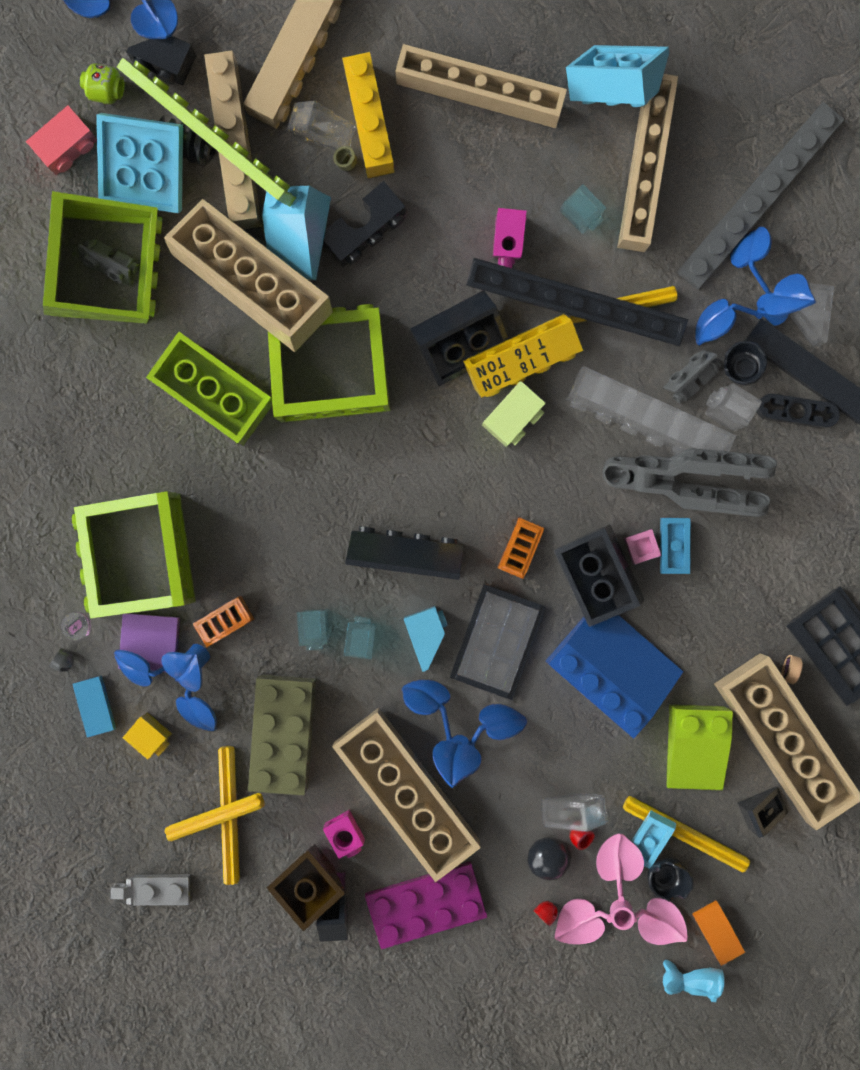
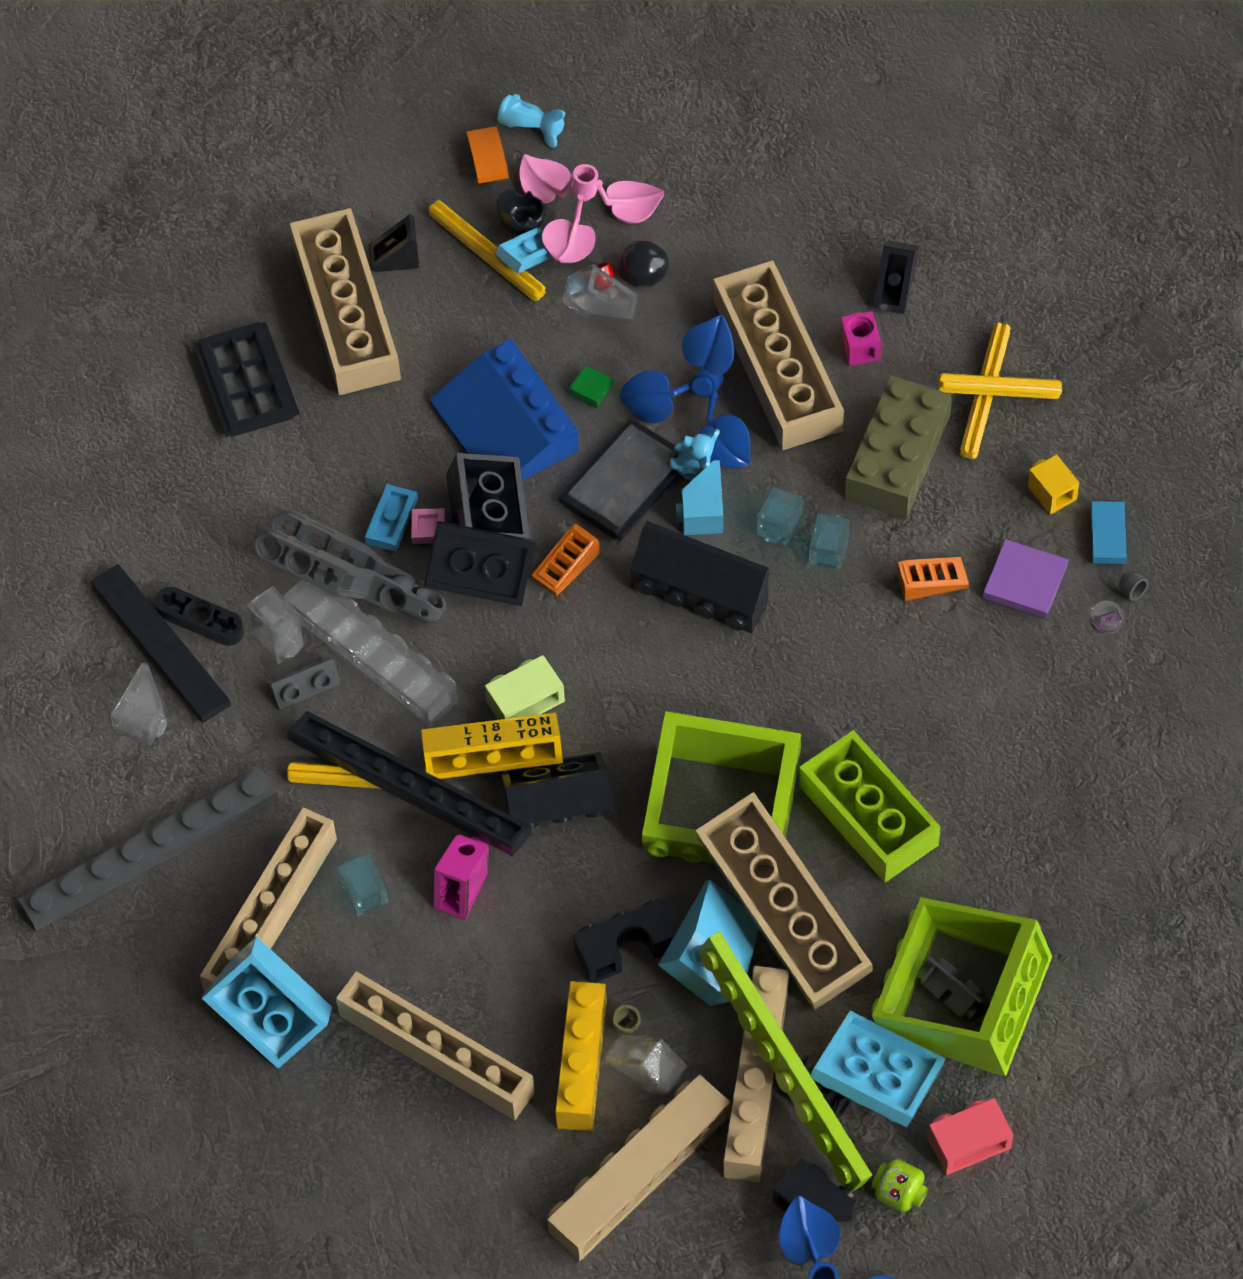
camera: 160 degrees left, 30 degrees down
(154, 890) = (1092, 342): light grey hinge -> none
(174, 545) = (997, 711): lime windscreen -> none
(185, 669) = (990, 499): blue plant -> none
(307, 887) = (915, 295): dark brown slope -> none
(425, 906) = (800, 253): magenta plate -> none
(443, 669) = (694, 454): none -> medium azure animal
(547, 912) = (664, 216): red hinge -> none
(554, 723) = (591, 386): none -> green tile
(587, 513) = (479, 563): none -> black tile
(698, 746) = (440, 327): lime slope -> none
(745, 363) = (240, 672): black hair -> none
(788, 297) = (174, 693): blue plant -> none
(792, 669) = (312, 368): light nougat tile -> none

